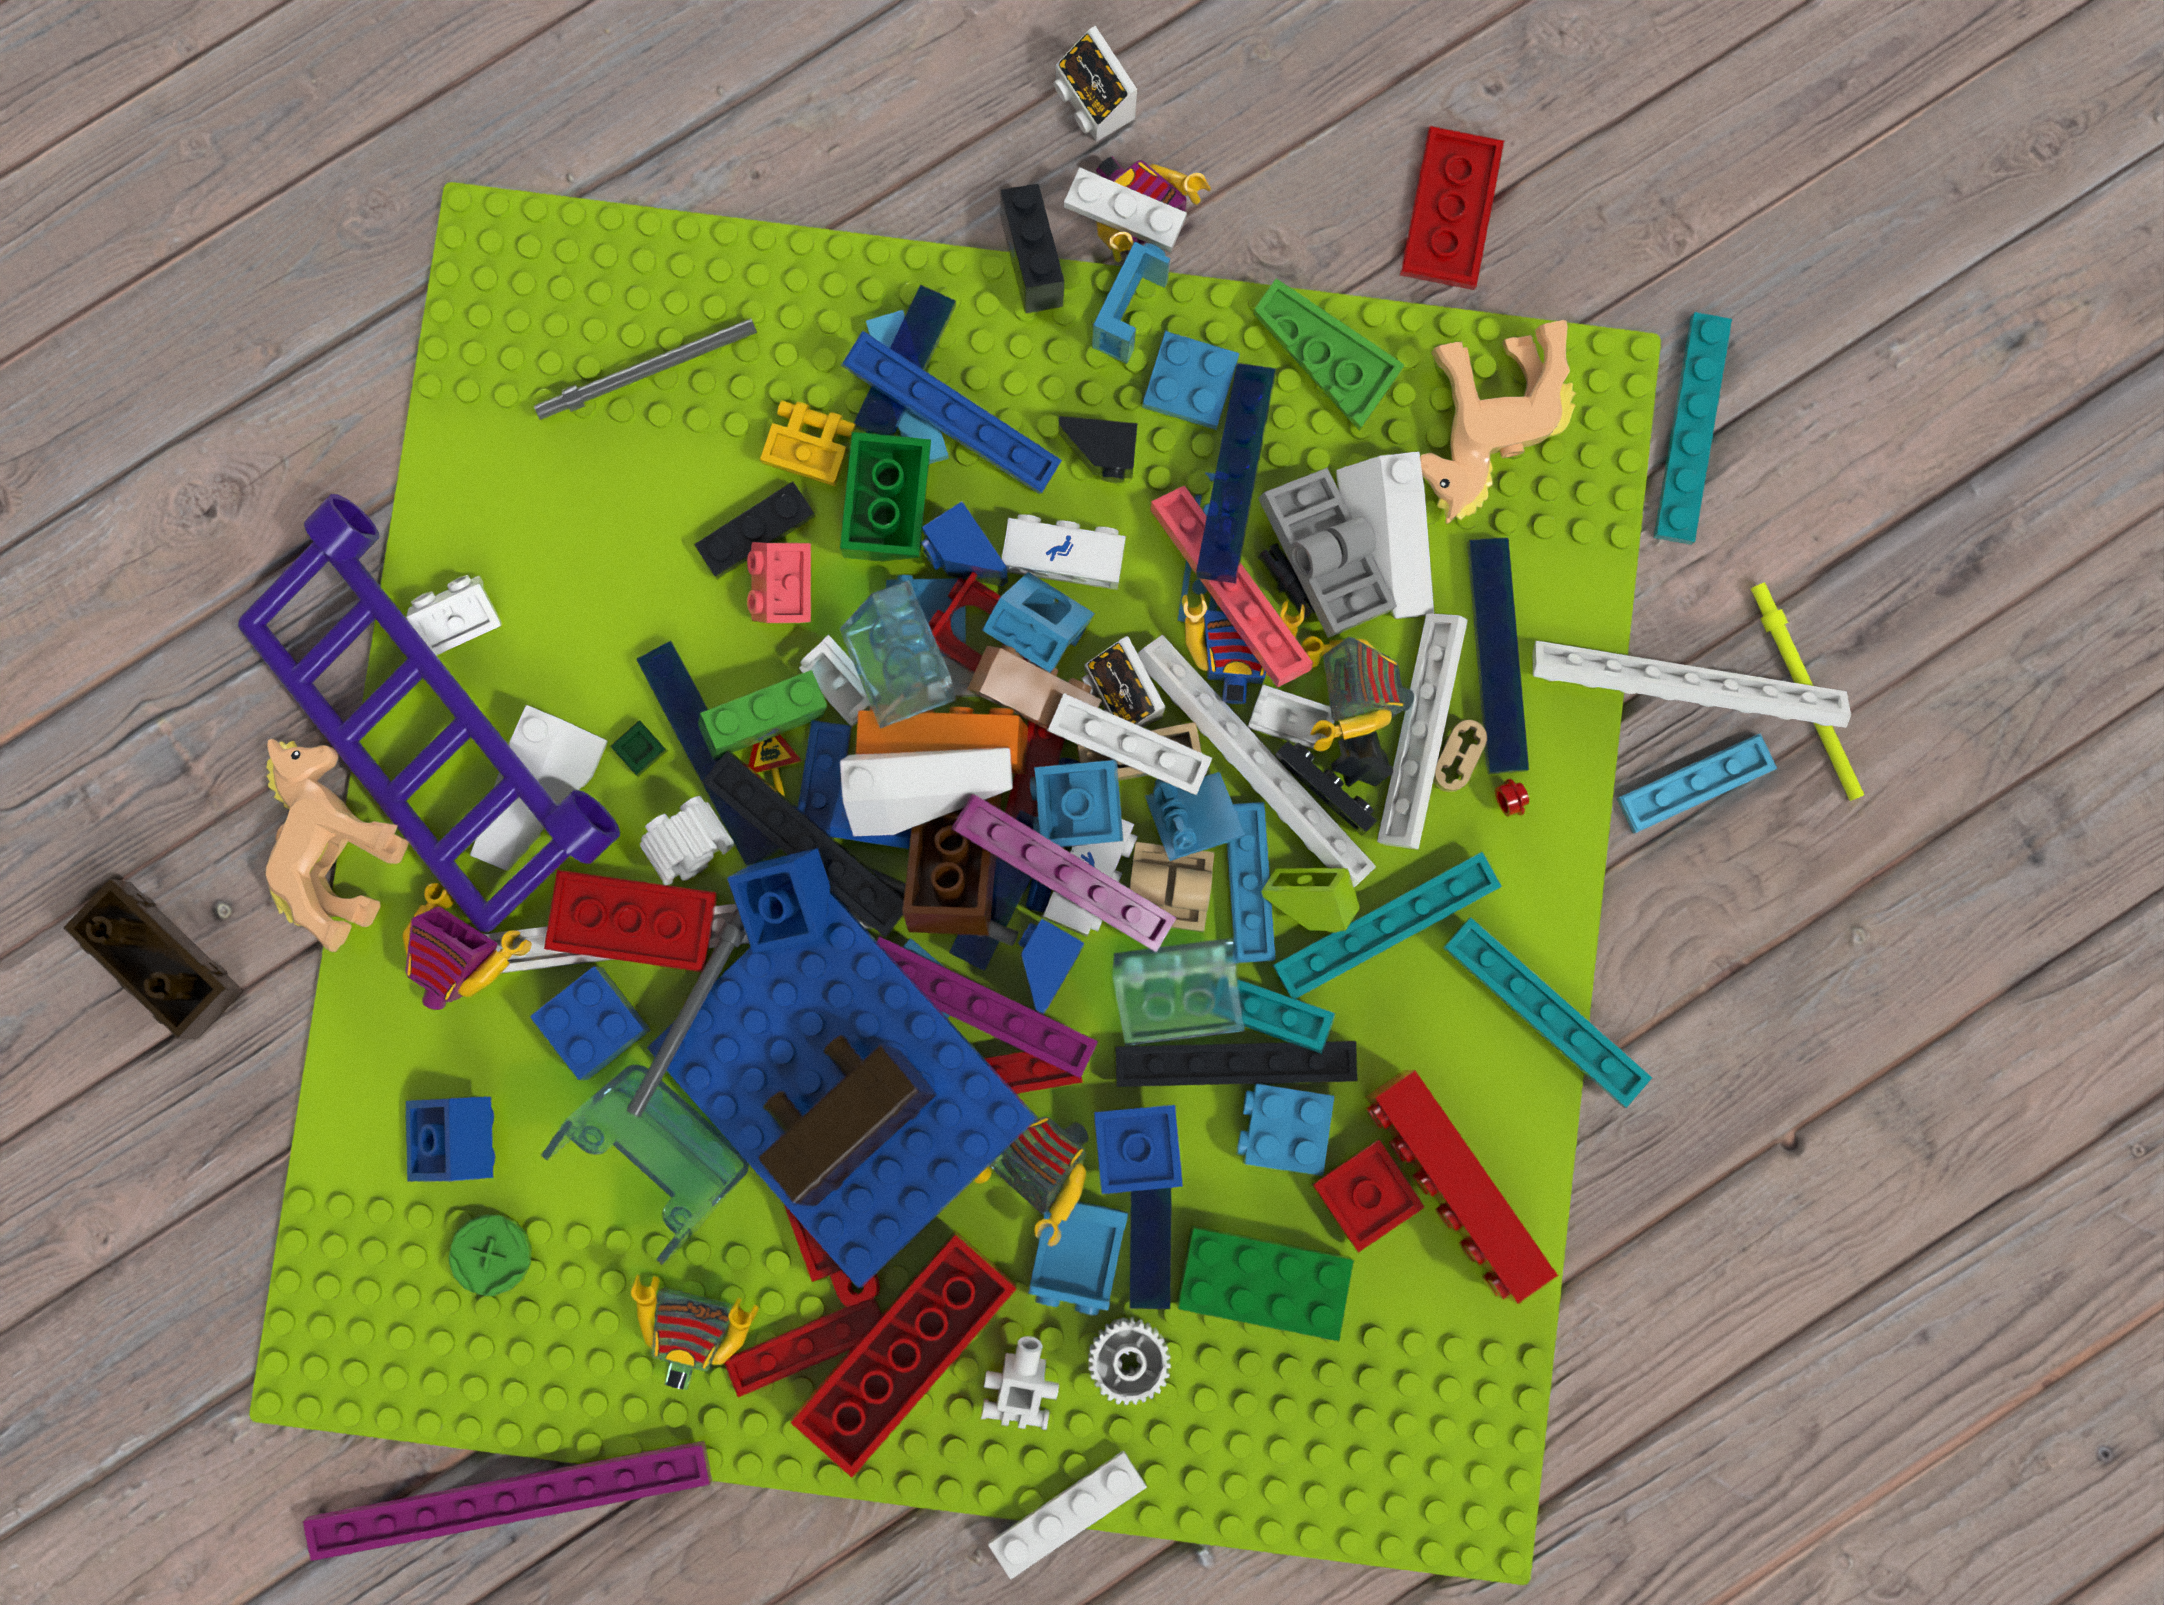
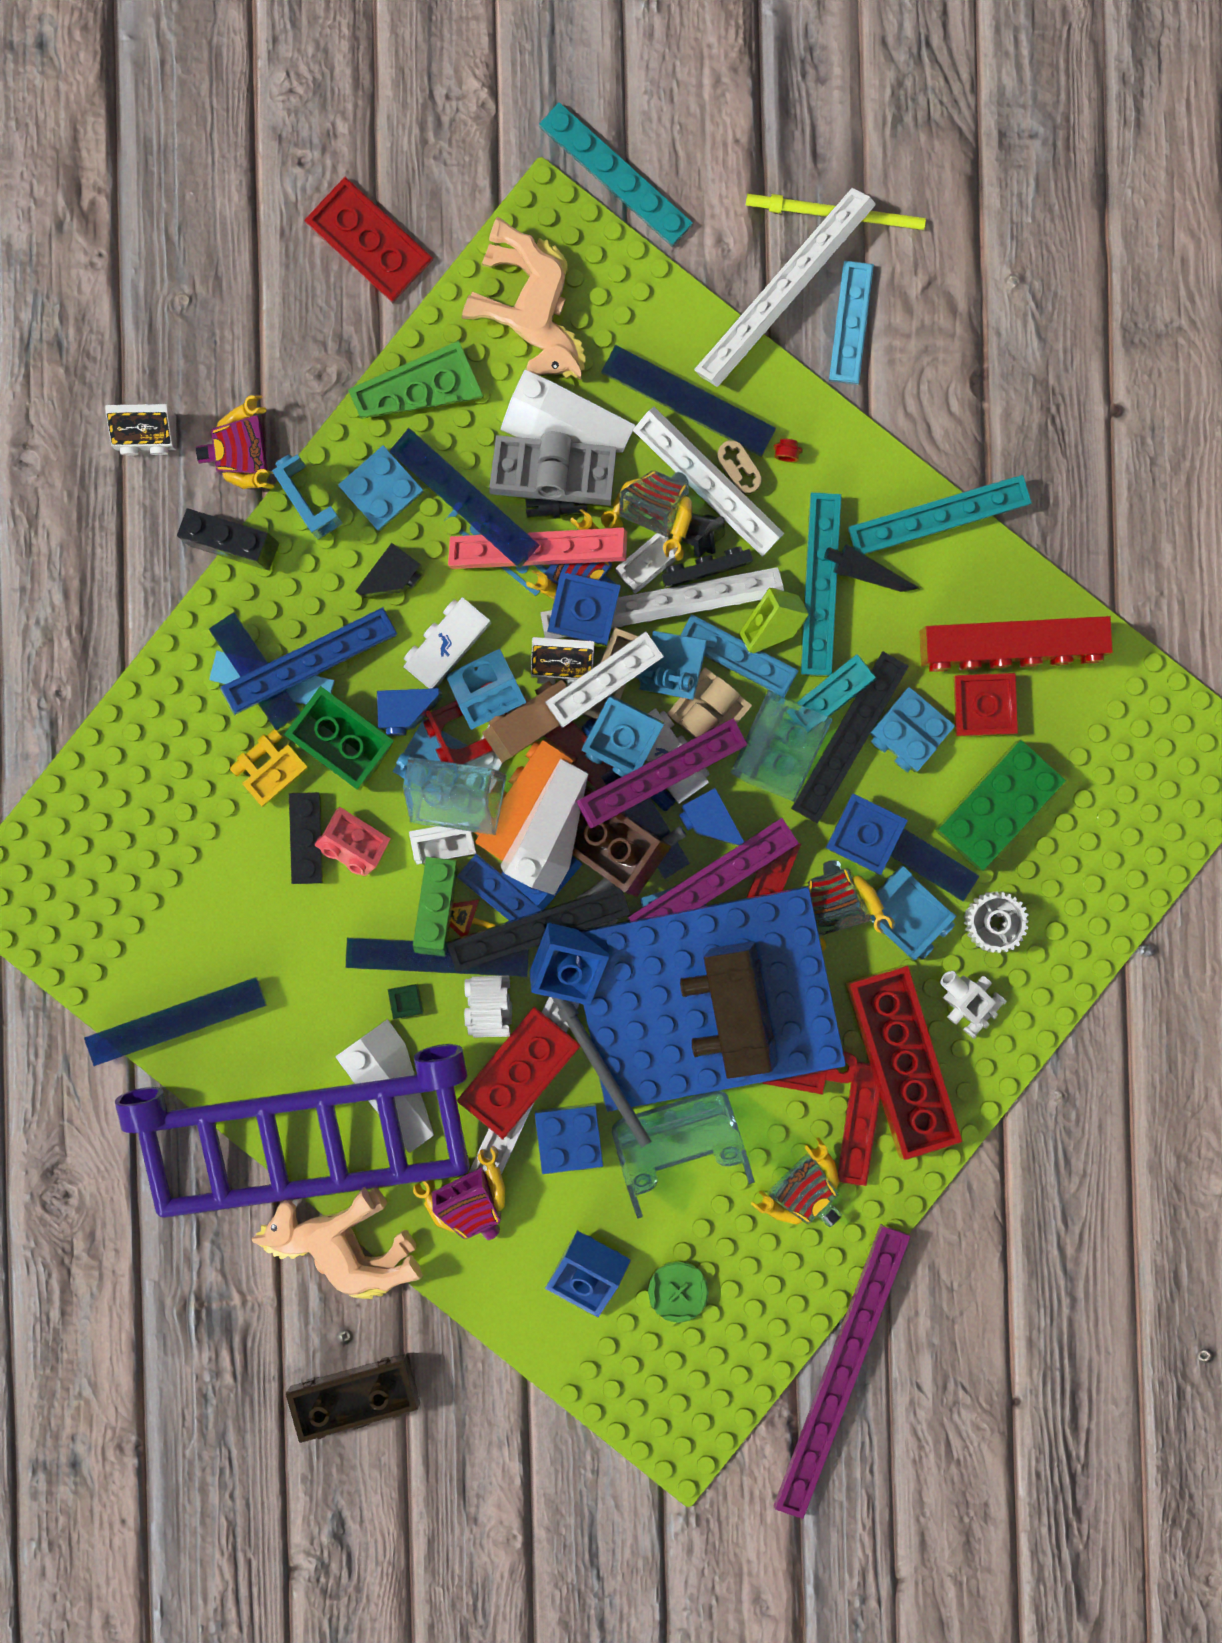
camera: 50 degrees left, 5 degrees up
(454, 614) = (242, 1069): white bracket -> none
(465, 509) = (175, 1021): none -> clear blue plate
(574, 397) = (143, 904): dark grey bar -> none
(1067, 1514) = (1067, 1020): white plate -> none
(1125, 209) = (240, 461): white plate -> none
(1195, 675) = (583, 608): none -> blue plate
(1434, 959) = (859, 566): none -> black bar

